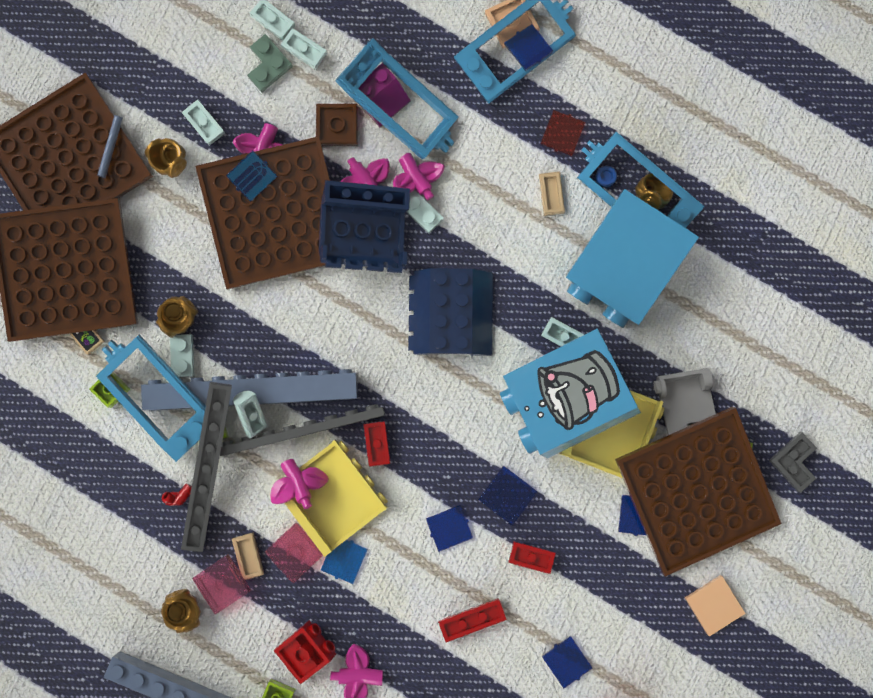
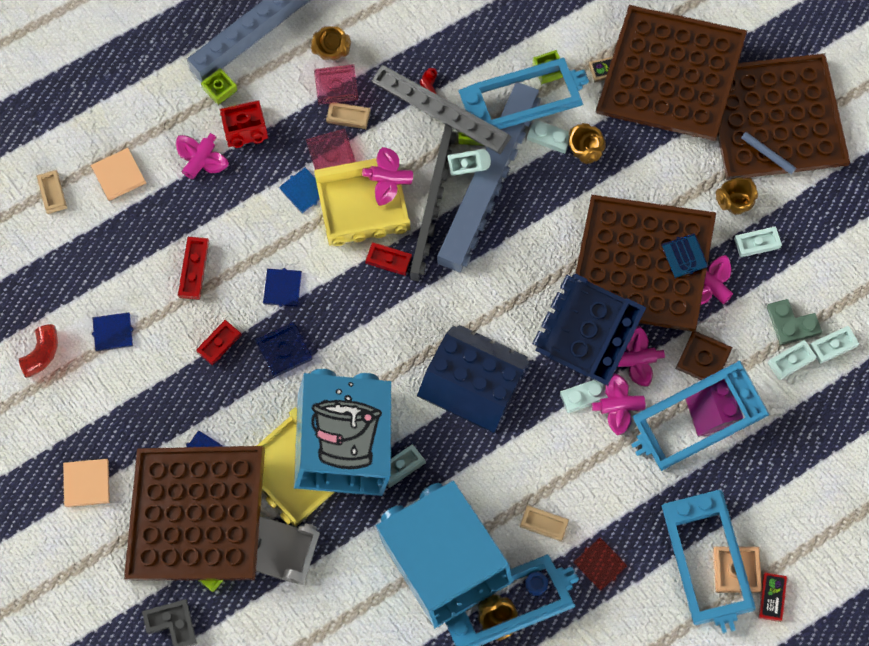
camera: 120 degrees right, 15 degrees down
(528, 47) = (700, 567): clear blue piece -> none

